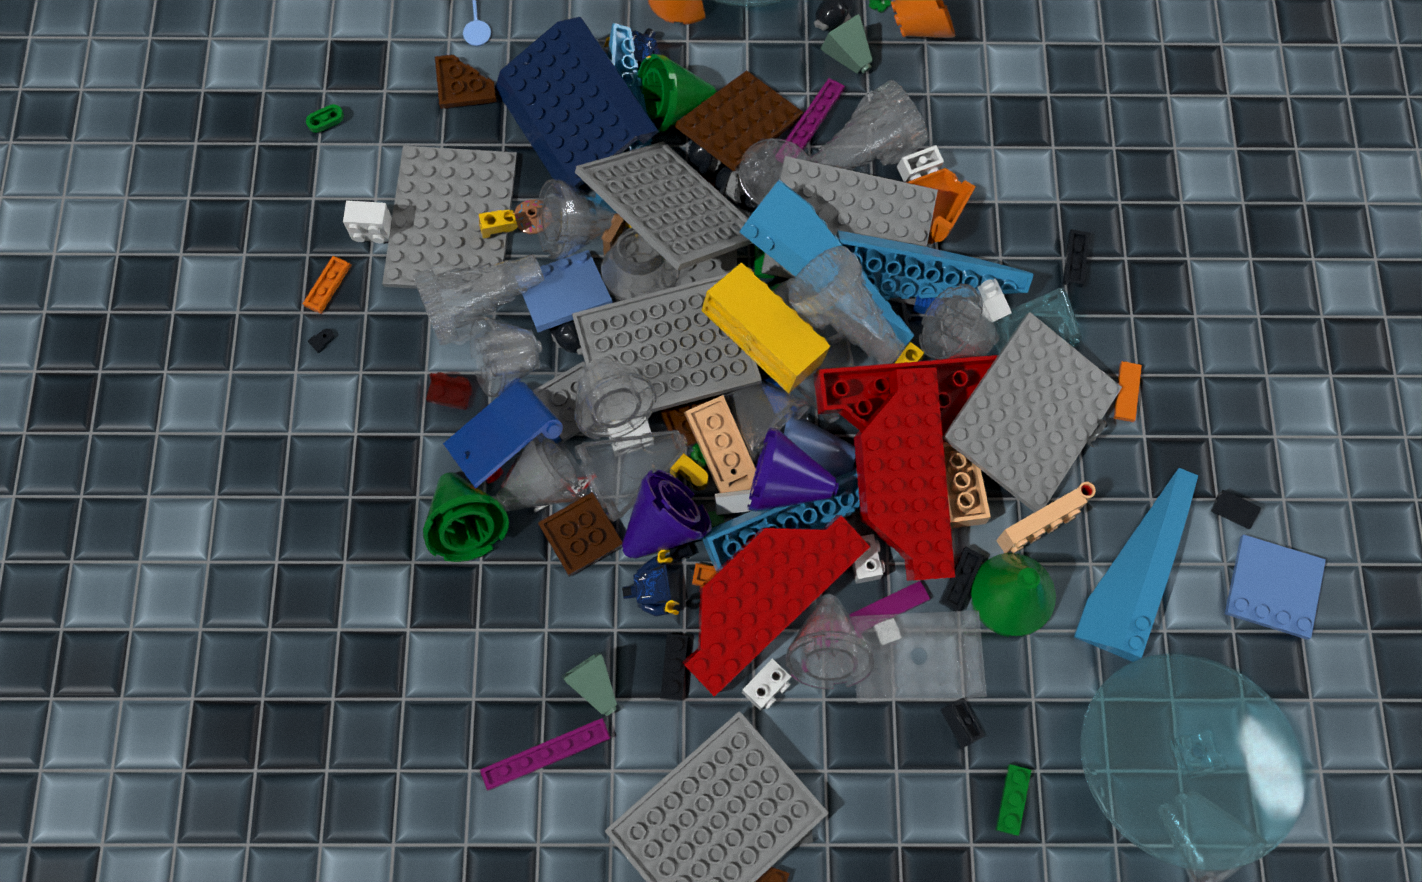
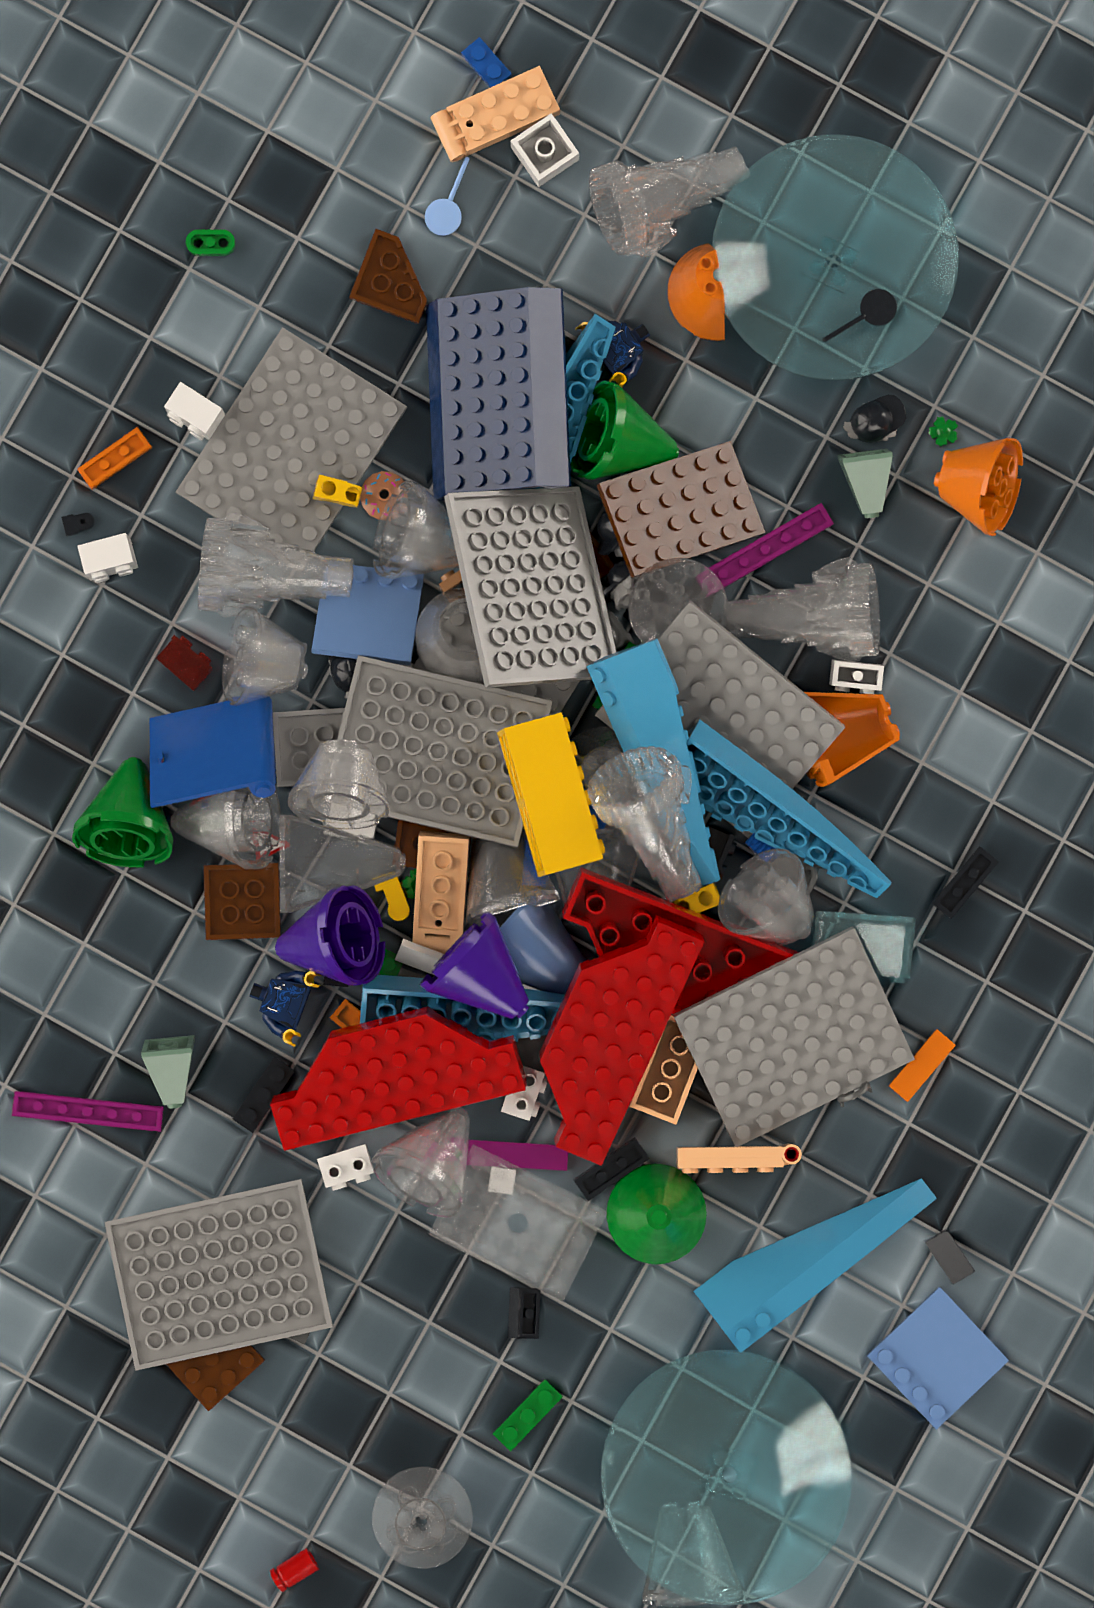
camera: 30 degrees right, 15 degrees up
(354, 345) = (108, 557): none -> white brick
(994, 299) = (827, 891): white brick -> none

